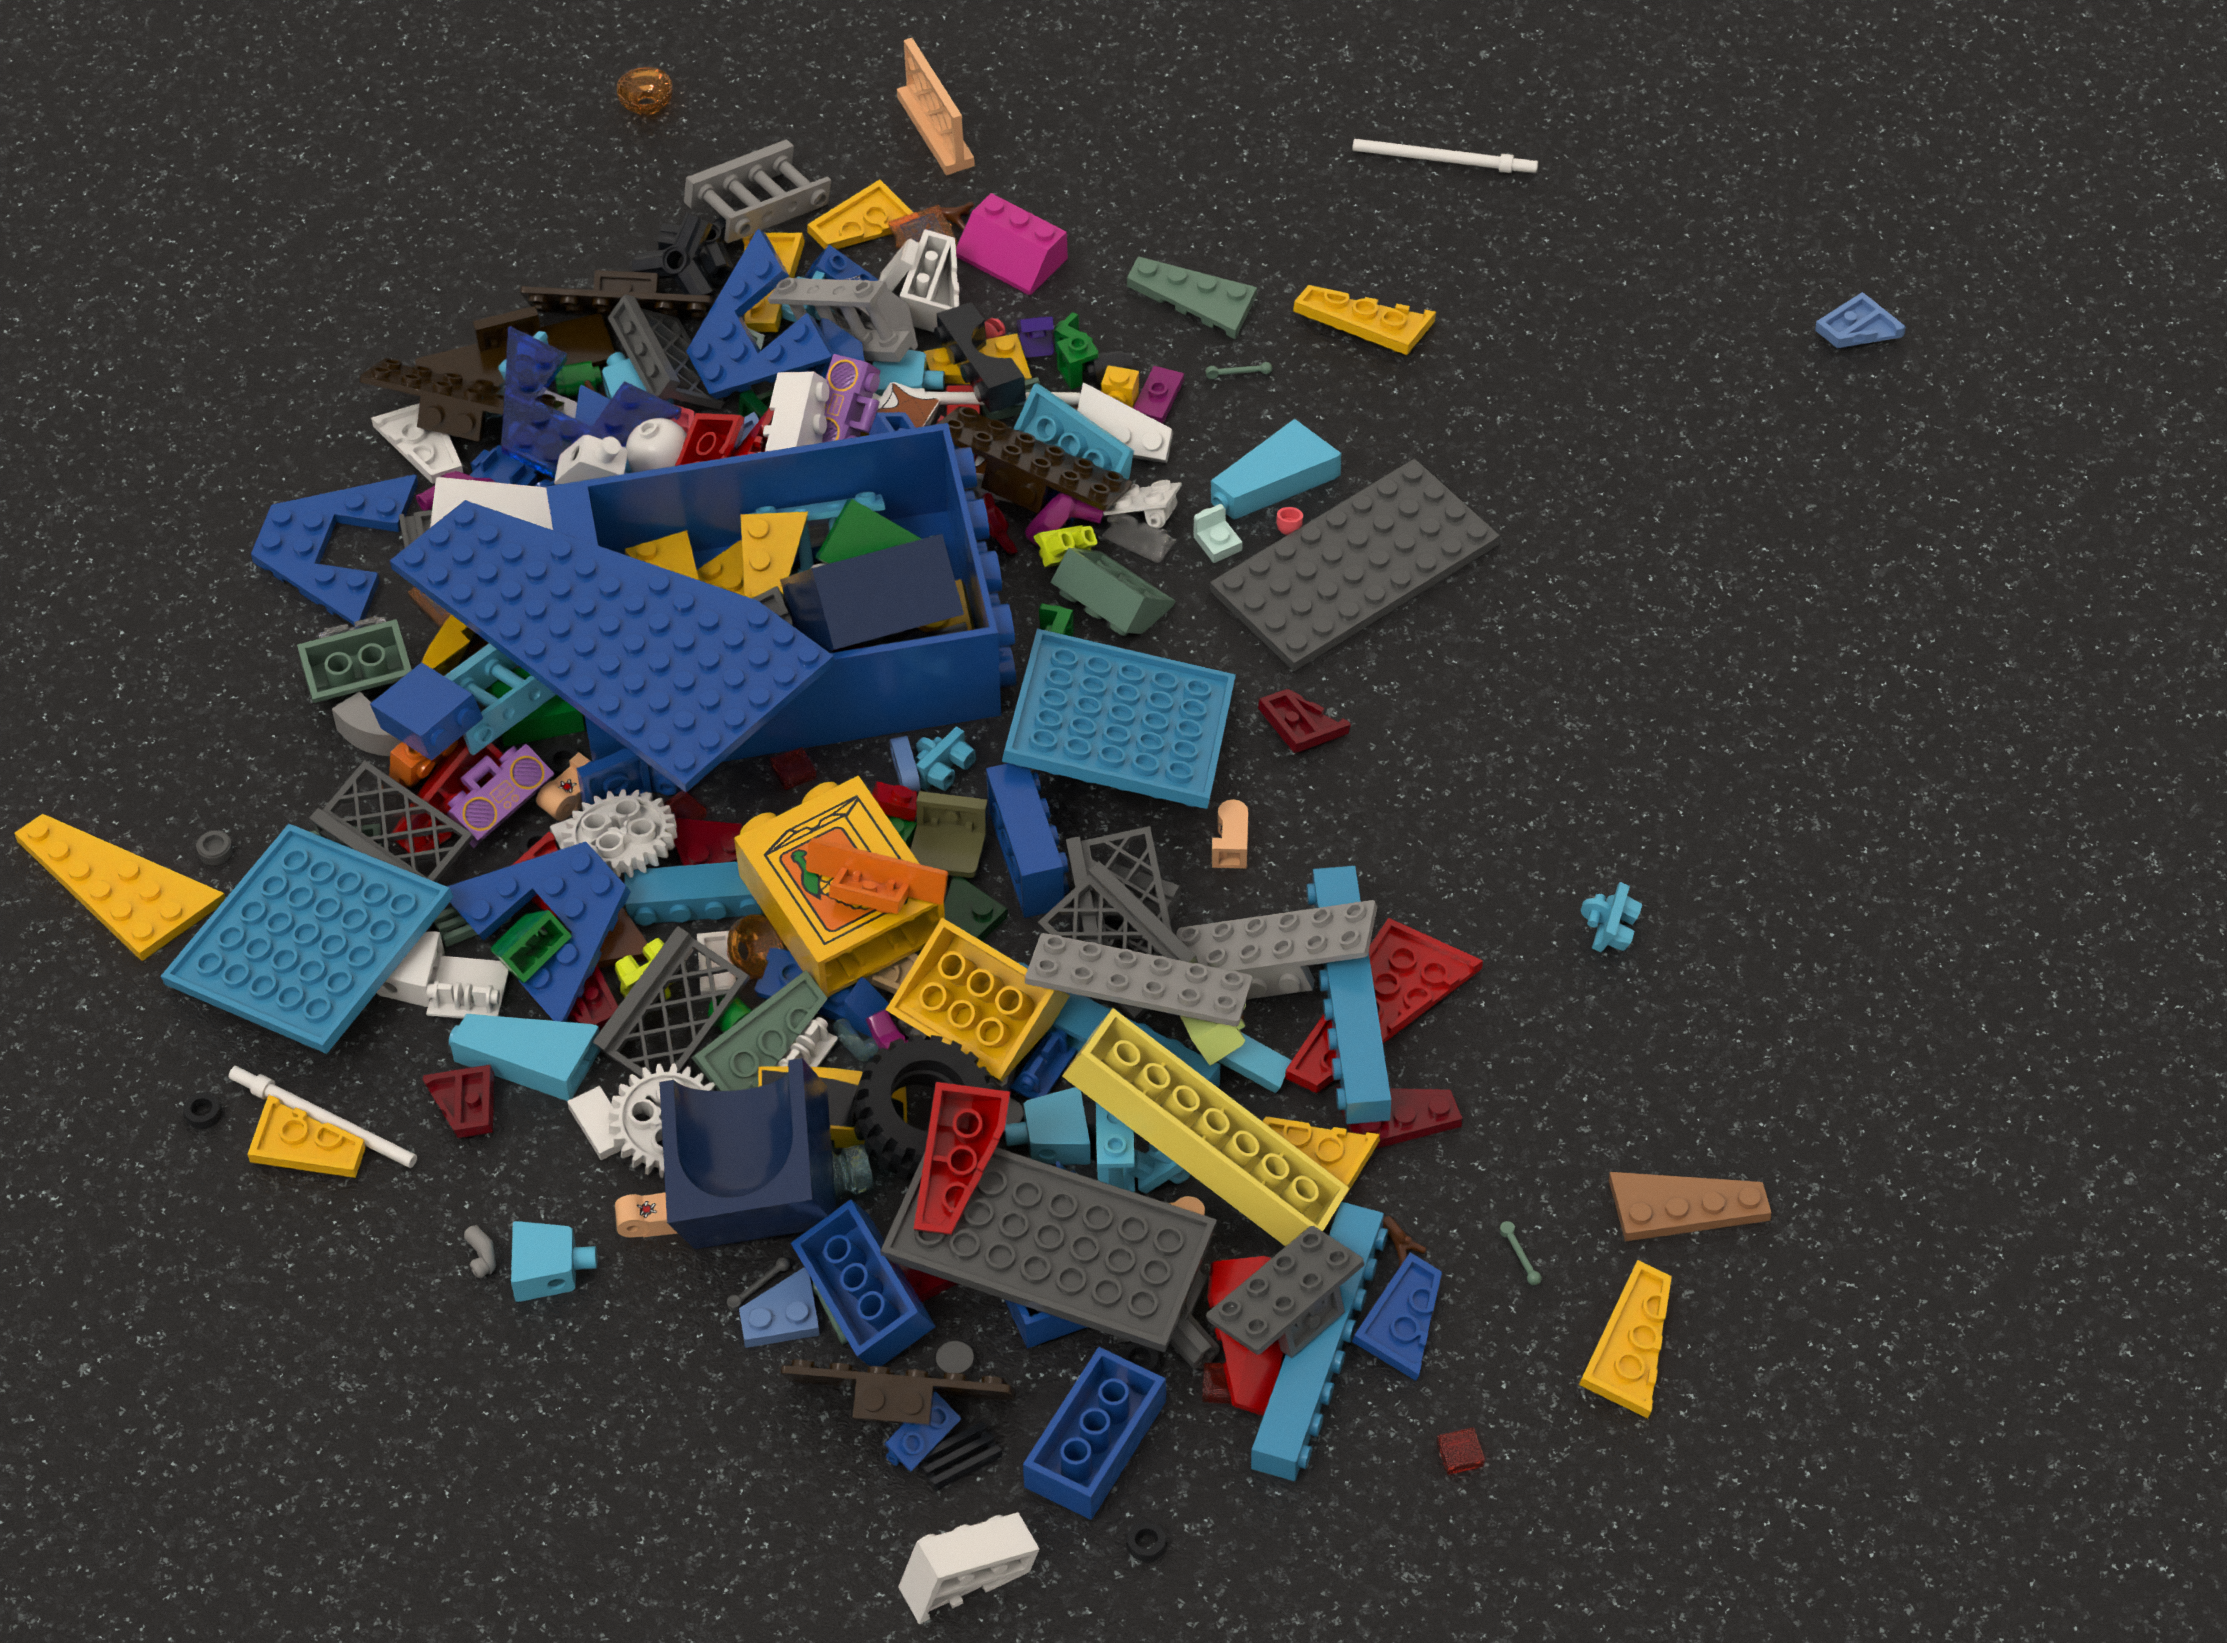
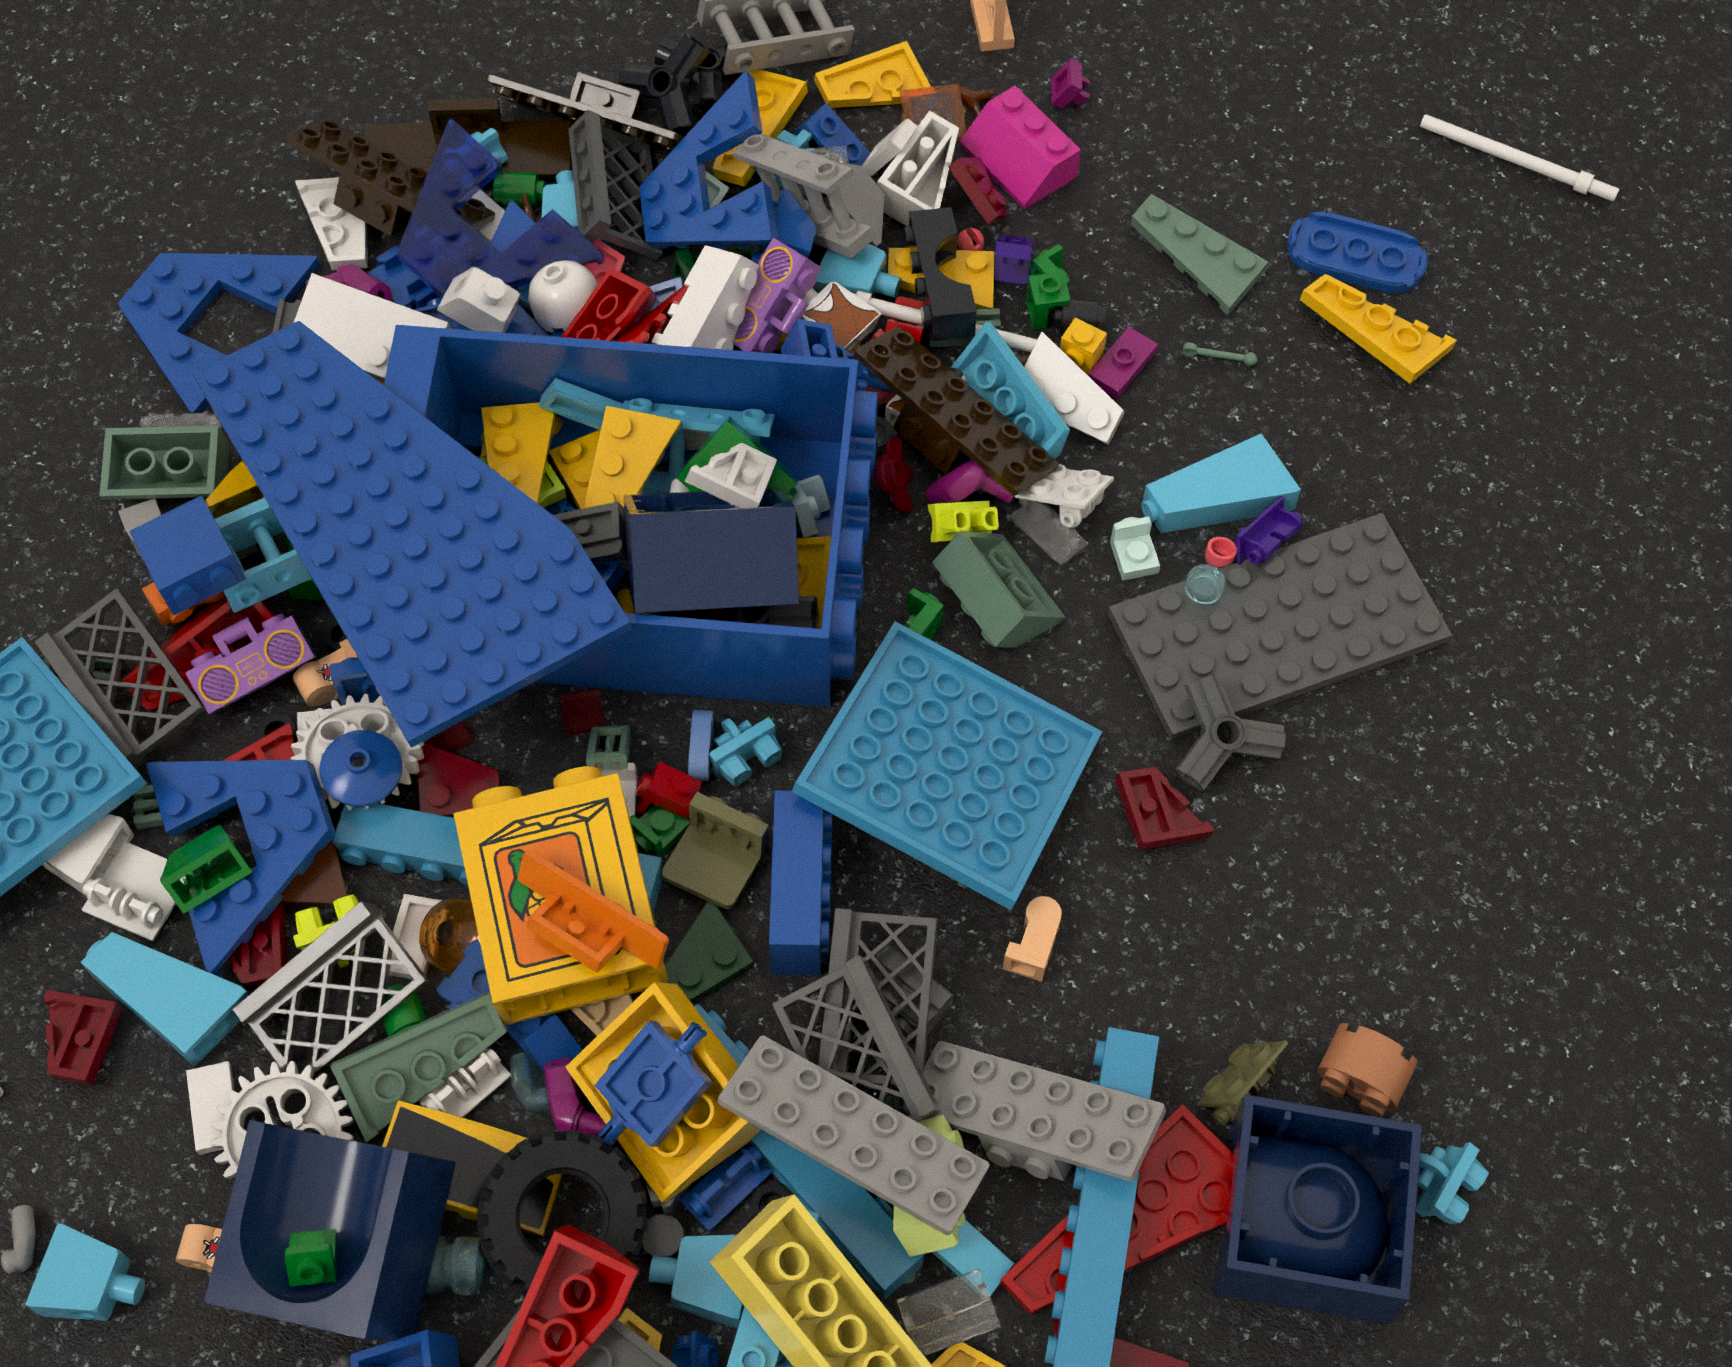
camera: 15 degrees right, 10 degrees up
(635, 849) = (362, 784): none -> blue dish
(709, 526) = (576, 403): none -> medium azure tile
(742, 1170) = (312, 1257): none -> green bracket
(825, 776) = (609, 755): none -> sand green tile
(871, 535) = (735, 475): none -> white wing
(967, 987) = (653, 1084): none -> blue plate
(981, 278) = (980, 188): none -> dark red wing
(1036, 184) = (1069, 85): none -> magenta tile
(1263, 1092) = (948, 1312): none -> clear hinge
(1284, 543) = (1205, 584): none -> clear light blue tile
(1323, 494) = (1262, 536): none -> dark purple hinge
(1329, 666) = (1245, 738): none -> dark grey piece
(1330, 263) = (1357, 252): none -> blue tile
(1432, 890) = (1248, 1072): none -> olive hinge
(1517, 954) = (1320, 1210): none -> dark blue piece
(1525, 854) = (1366, 1069): none -> nougat brick

